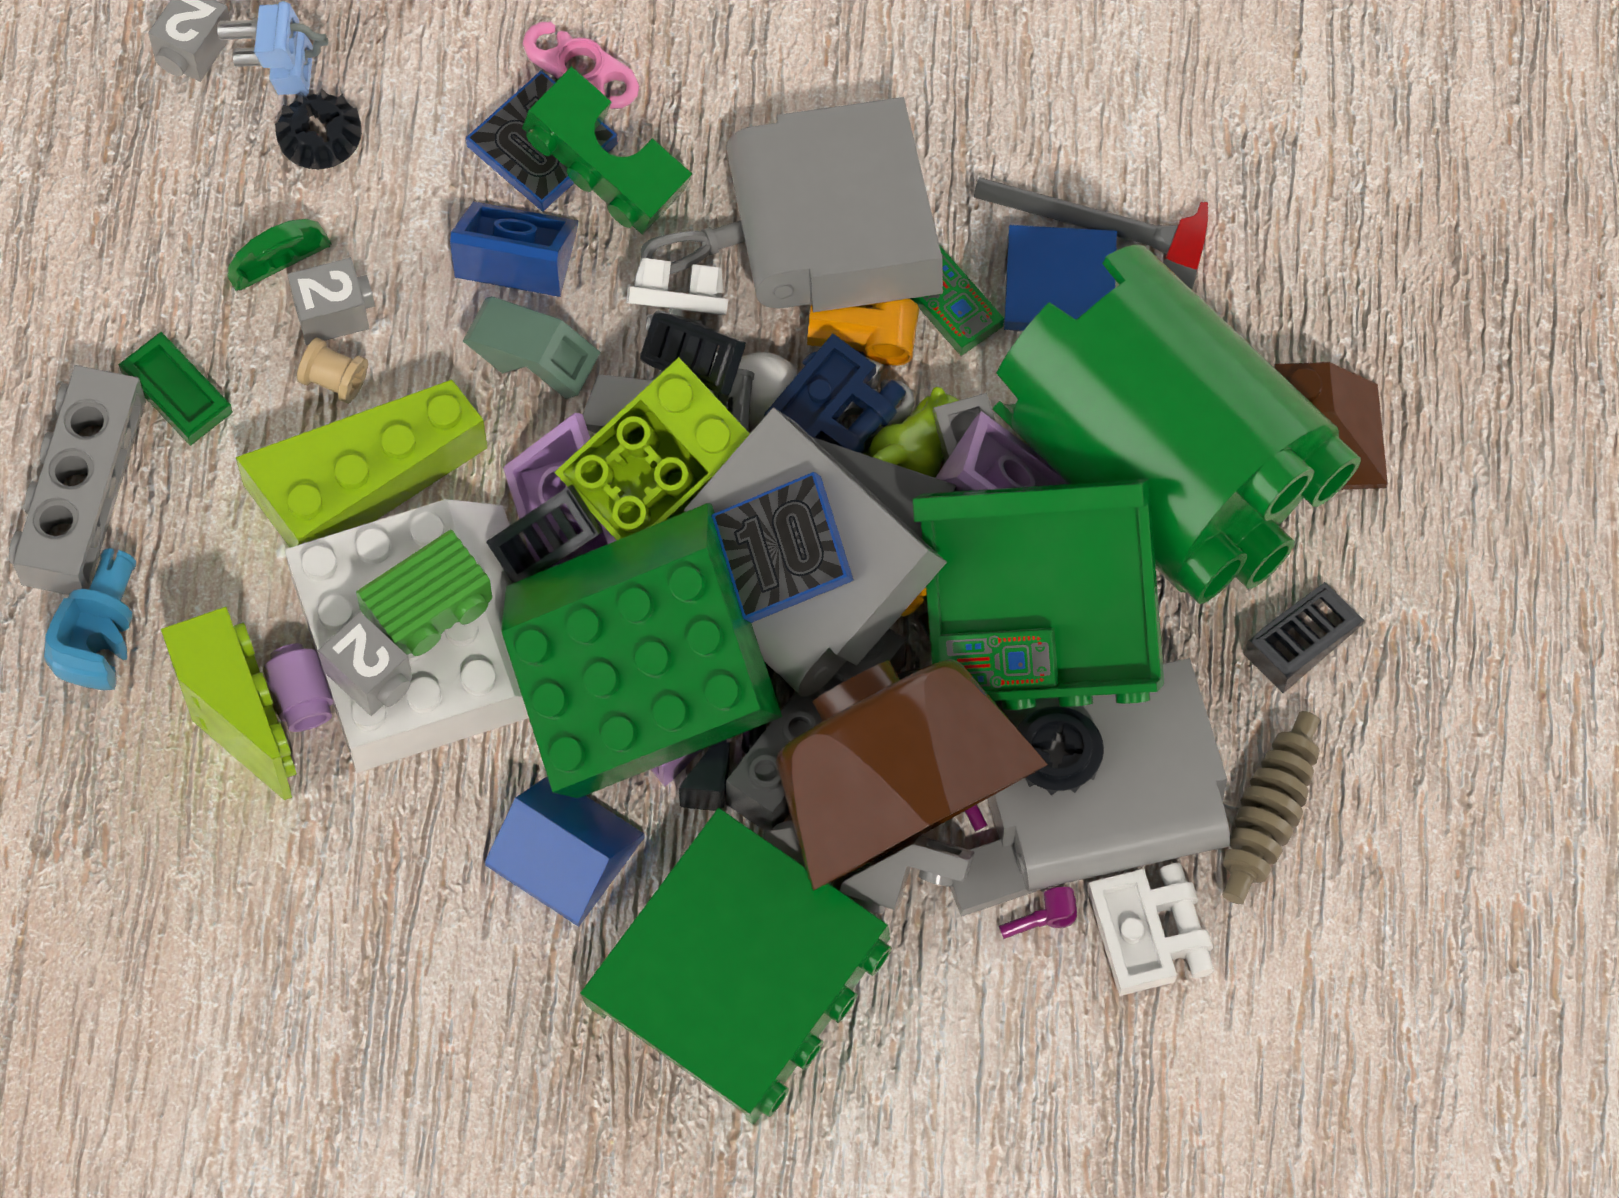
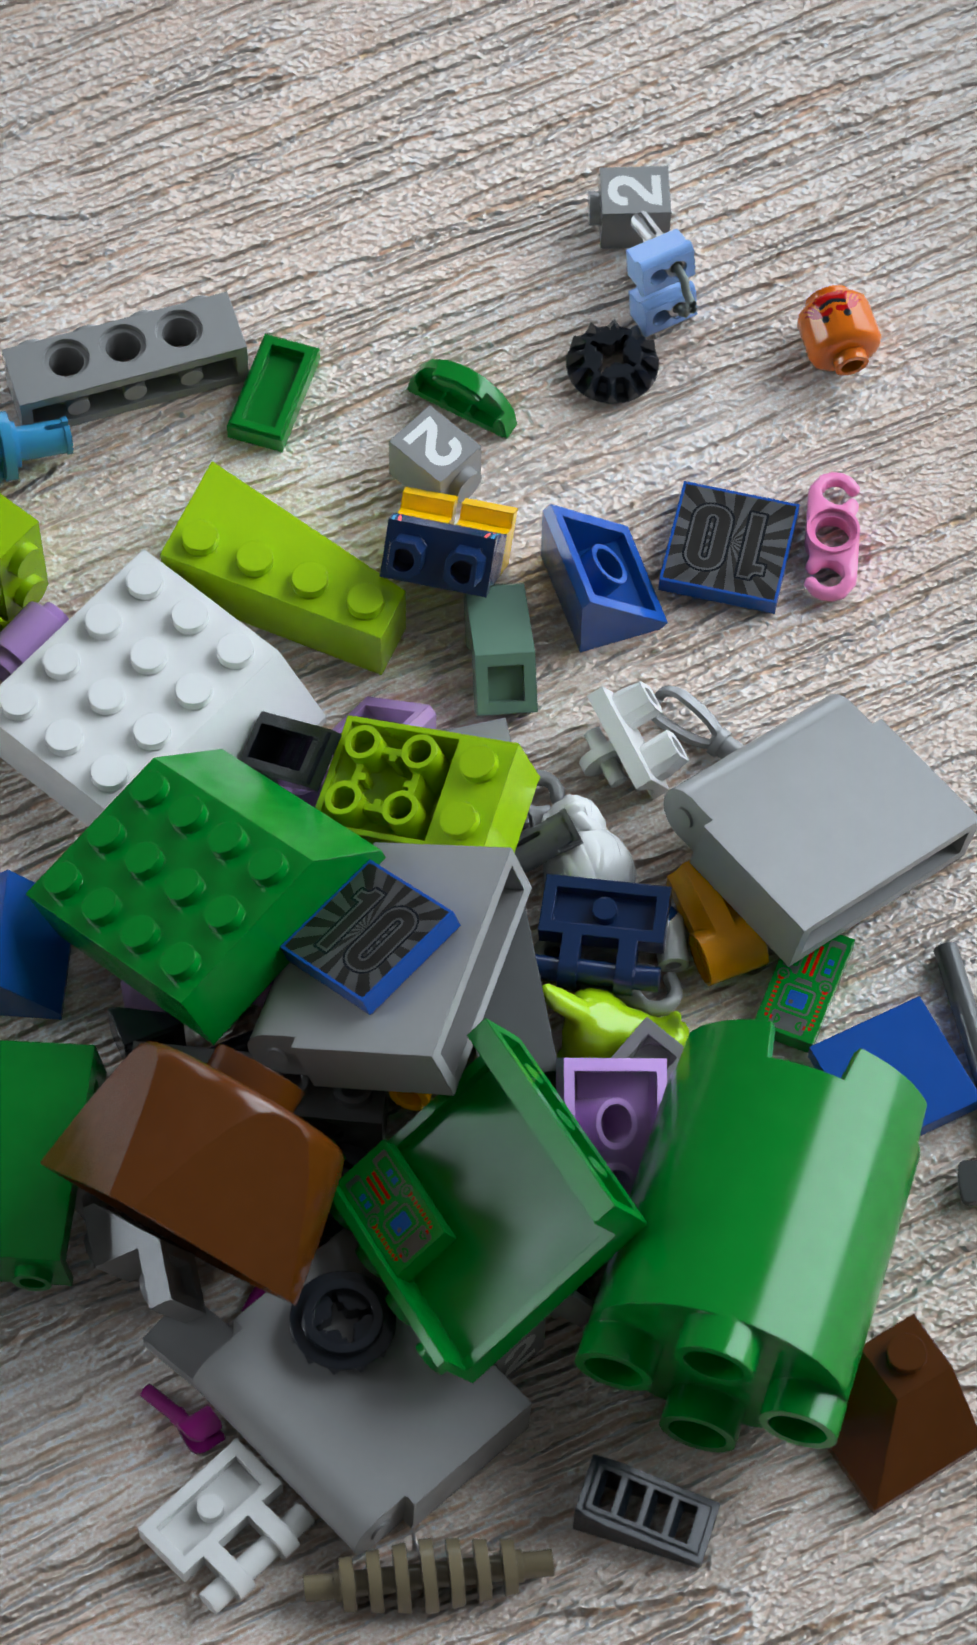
camera: 60 degrees right, 5 degrees down
(332, 370) = (367, 500): tan bush -> none
(366, 665) = (50, 663): light grey brick -> none
(424, 330) = (433, 552): none -> dark blue hips
(427, 595) = (150, 675): bright green brick -> none
(633, 186) = (745, 545): green arch -> none
(696, 346) = (569, 773): black slope -> none

